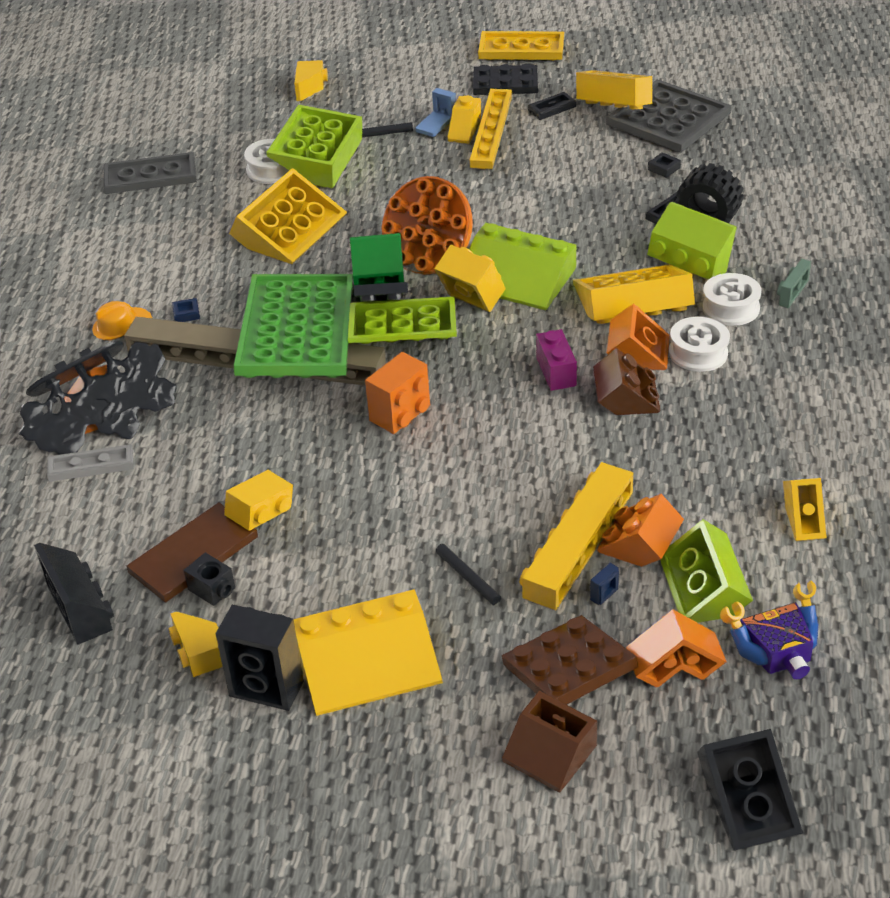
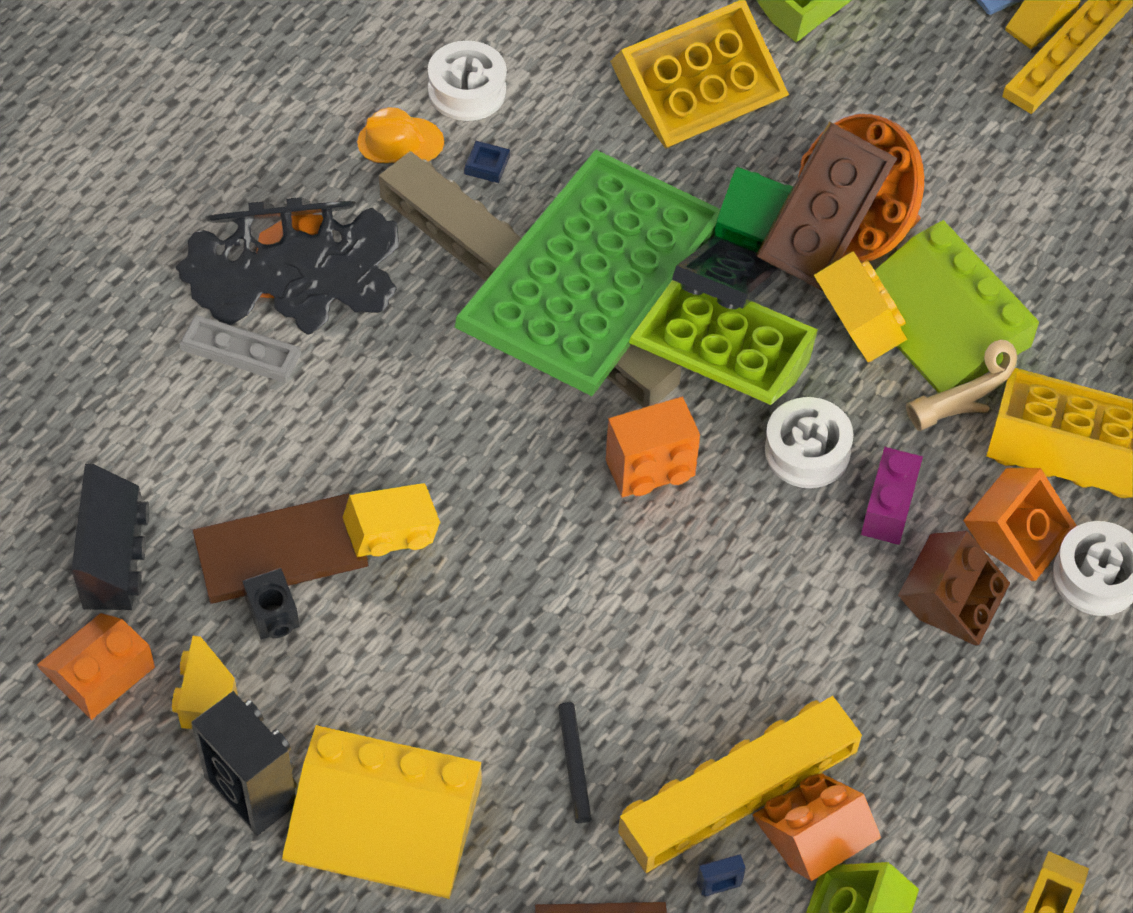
camera: 25 degrees right, 15 degrees up
(112, 663) = (99, 663): none -> orange slope
(141, 288) = (485, 82): none -> white wheel
(416, 234) = (826, 204): none -> reddish brown tile
(487, 366) = (811, 425): none -> white wheel
(544, 315) = (961, 399): none -> tan plant

